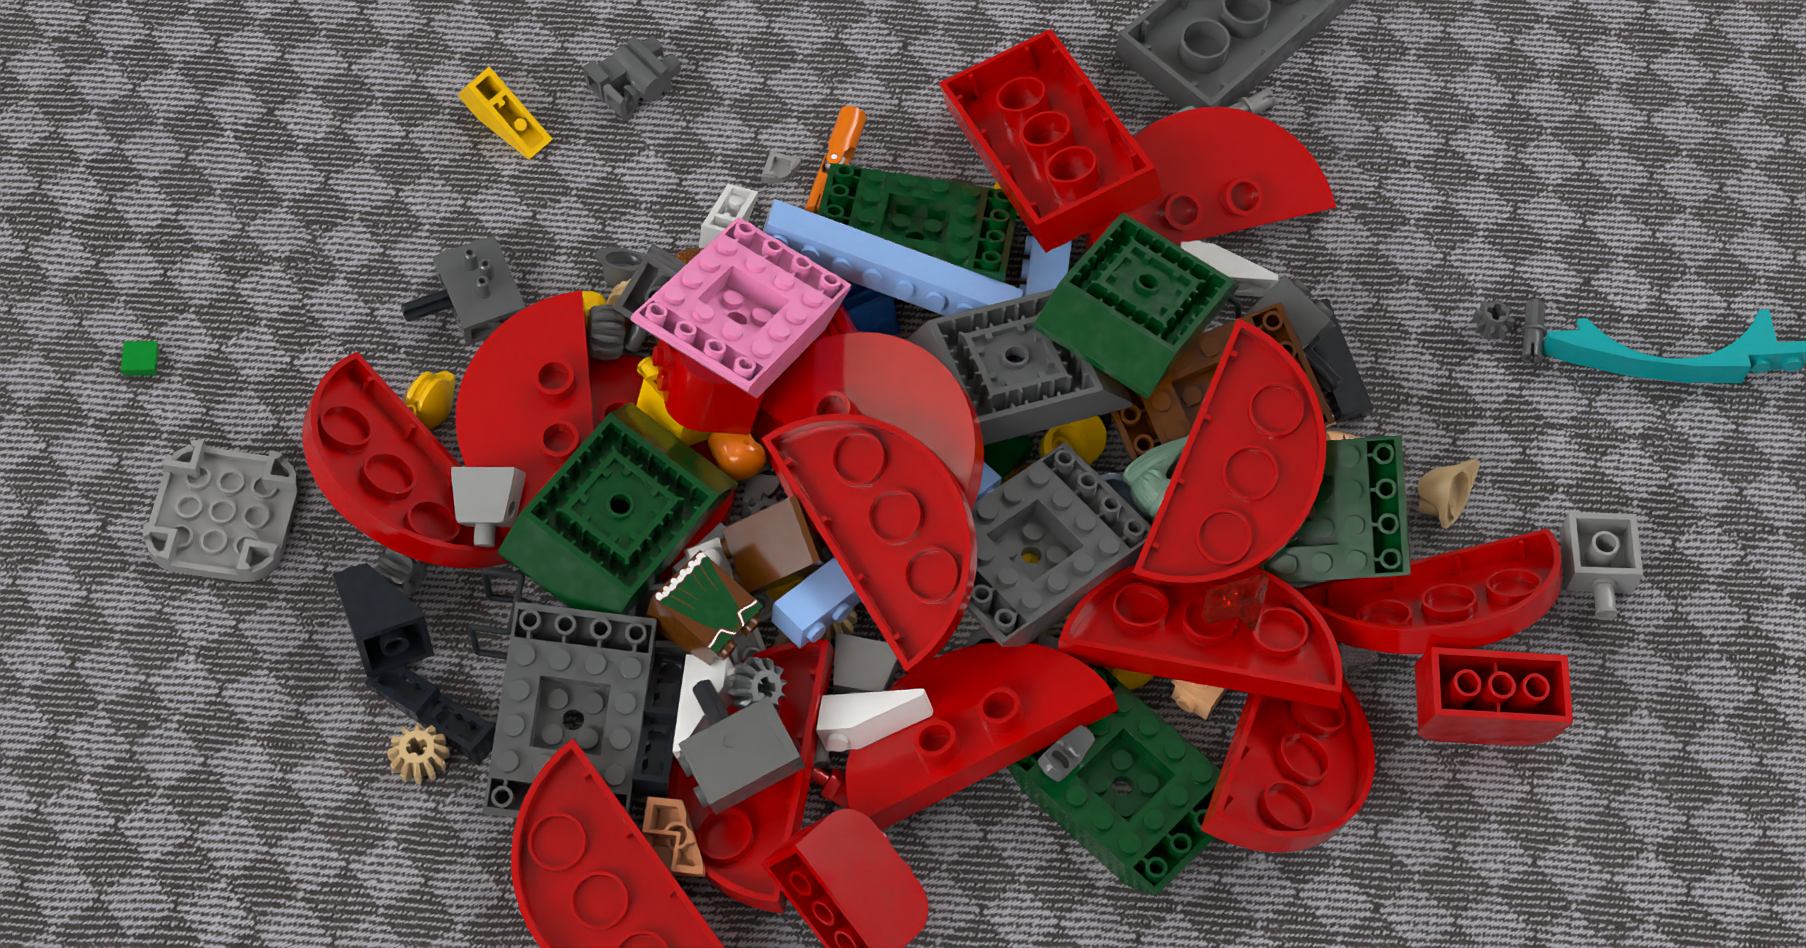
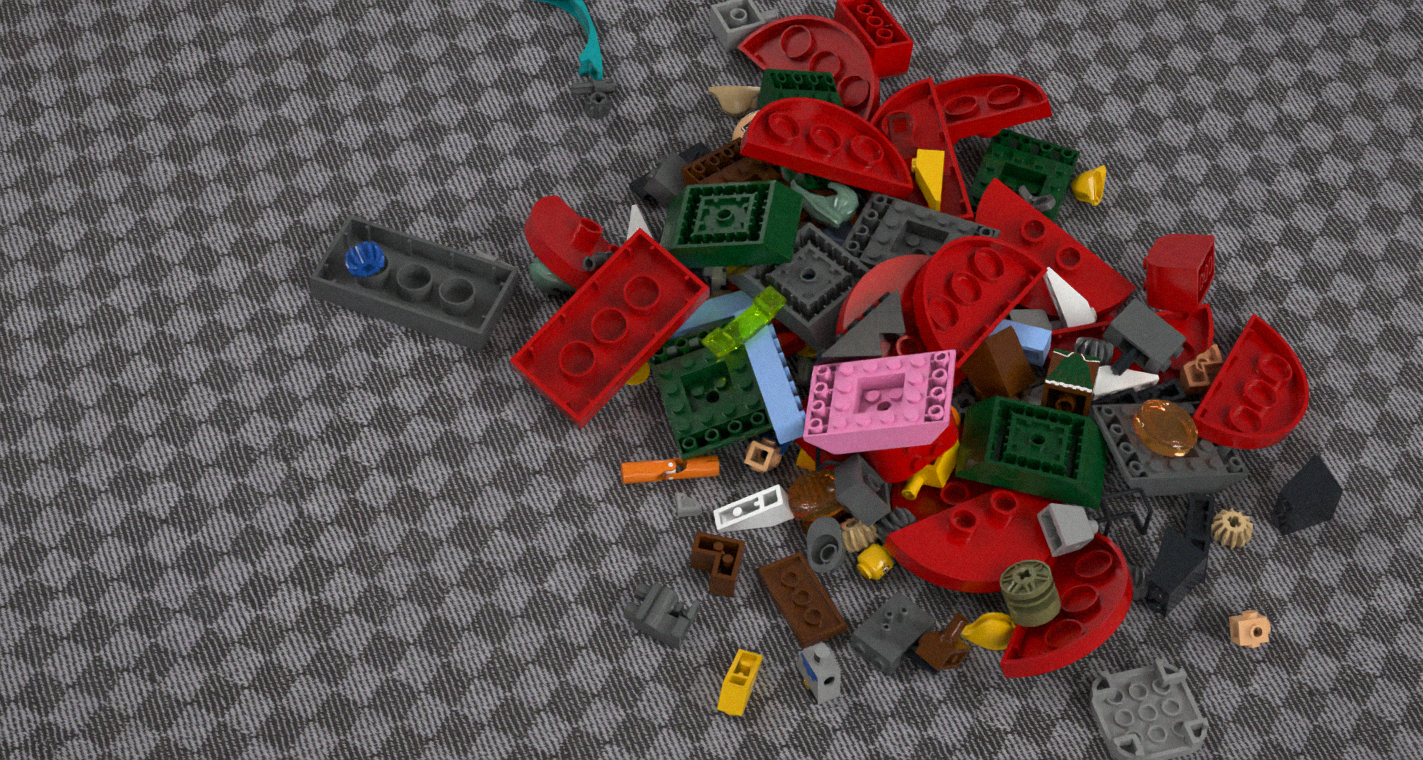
camera: 115 degrees left, 10 degrees down
(257, 681) = (1249, 629): none -> light nougat brick
(400, 862) = (1307, 498): none -> black slope
(418, 410) = (1030, 593): none -> olive wheel
(419, 315) = (944, 648): none -> reddish brown brick
(468, 186) = (819, 672): none -> light grey torso
(572, 690) = (1165, 428): none -> clear orange piece
(580, 221) = (801, 600): none -> reddish brown plate
(669, 156) = (720, 556): none -> reddish brown brick
(857, 345) = (864, 336): none -> black slope
(970, 258) = (747, 324): none -> clear neon green slope
(1095, 893) = (1090, 185): none -> yellow hat
(1146, 607) = (929, 175): none -> yellow slope
(1162, 161) = (596, 261): none -> dark grey axle

